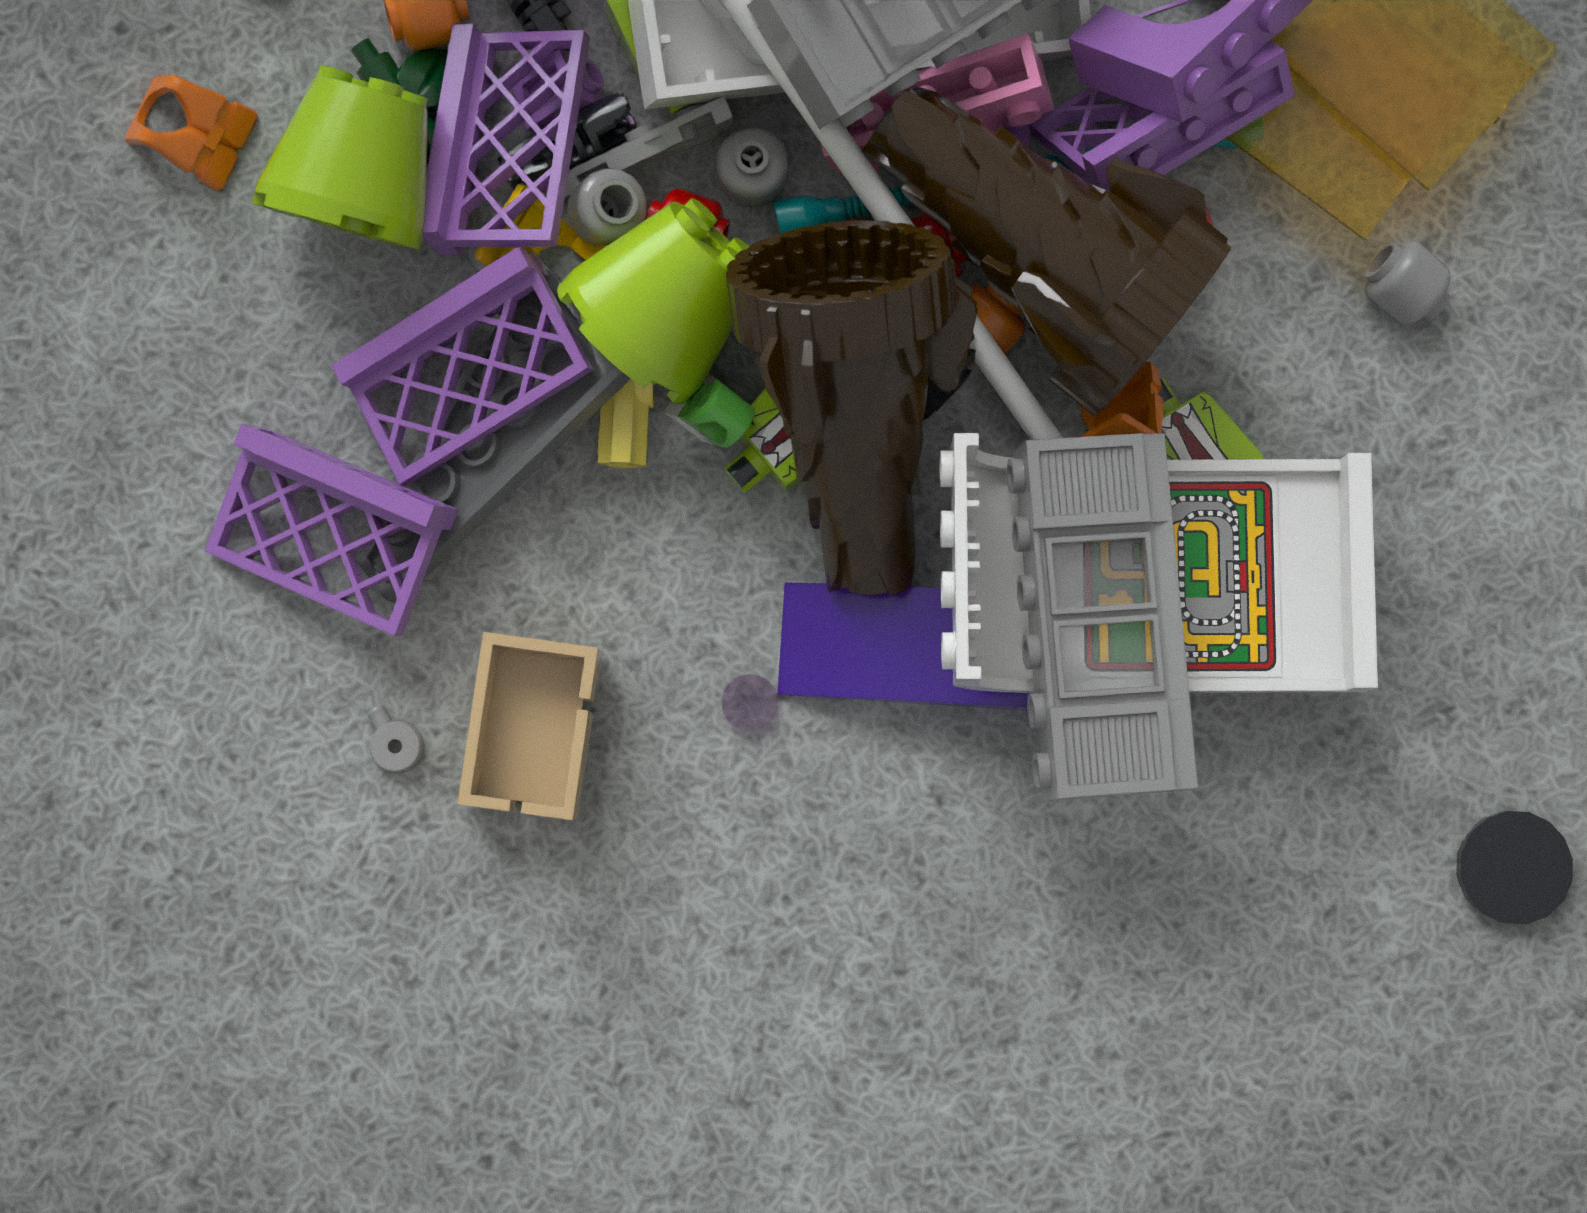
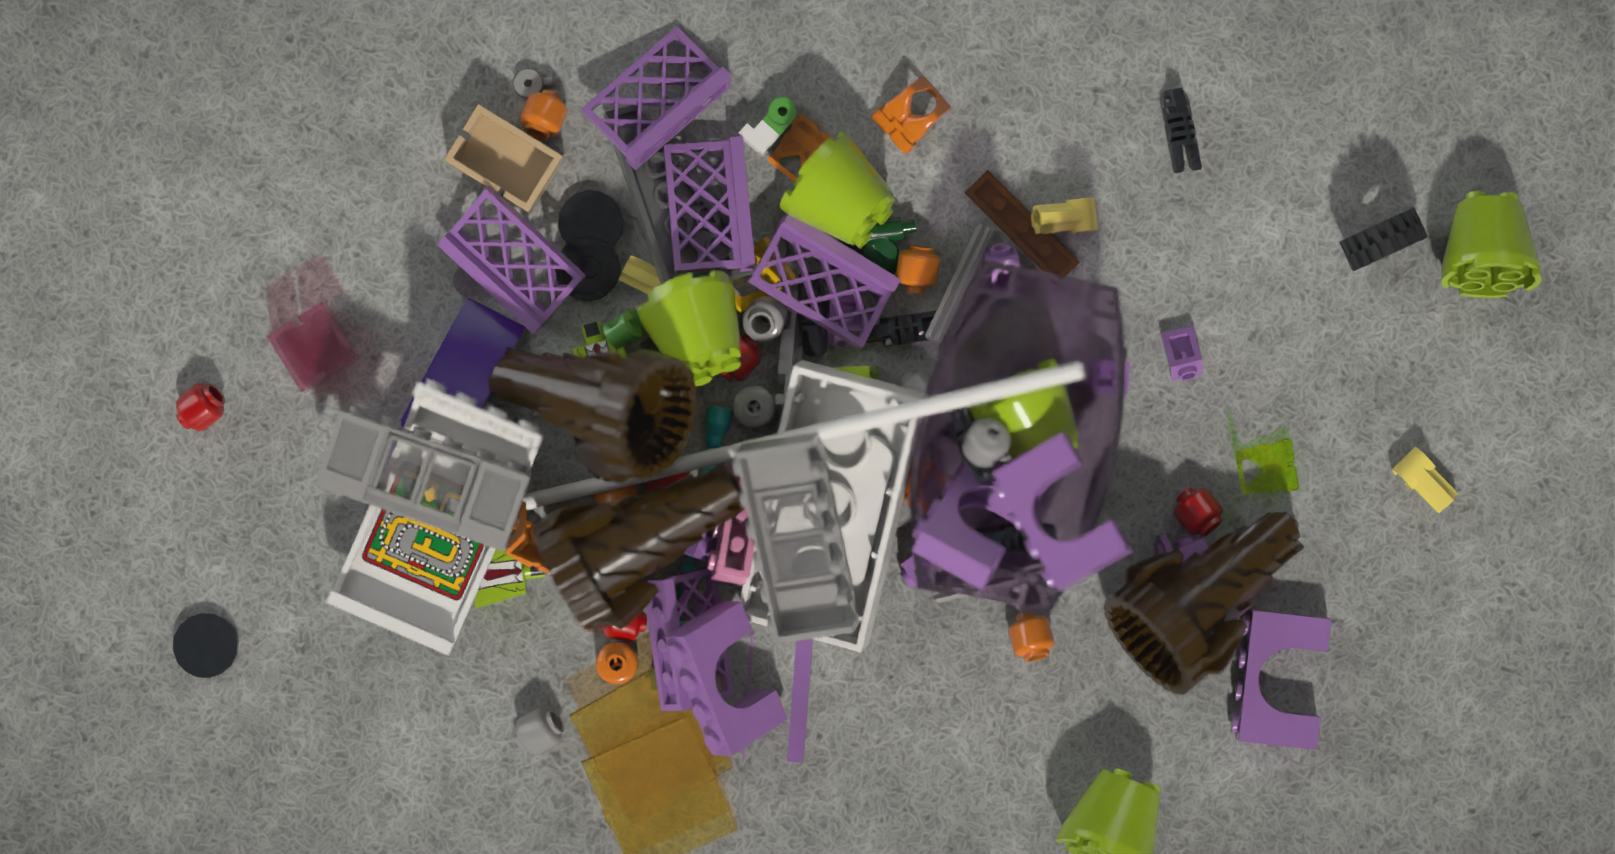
camera: 120 degrees right, 5 degrees up
(287, 327) = (779, 118): none -> leg
(304, 267) = (801, 140): none -> orange piece
(433, 697) = (543, 115): none -> orange head
(574, 551) = (592, 215): none -> black tile
(648, 522) = (597, 261): none -> black tile
(730, 654) = (500, 282): none -> medium lavender fence
(967, 900) = (313, 347): none -> clear pink piece
(1143, 1044) = (200, 407): none -> red head
(1235, 216) = (613, 651): none -> orange head

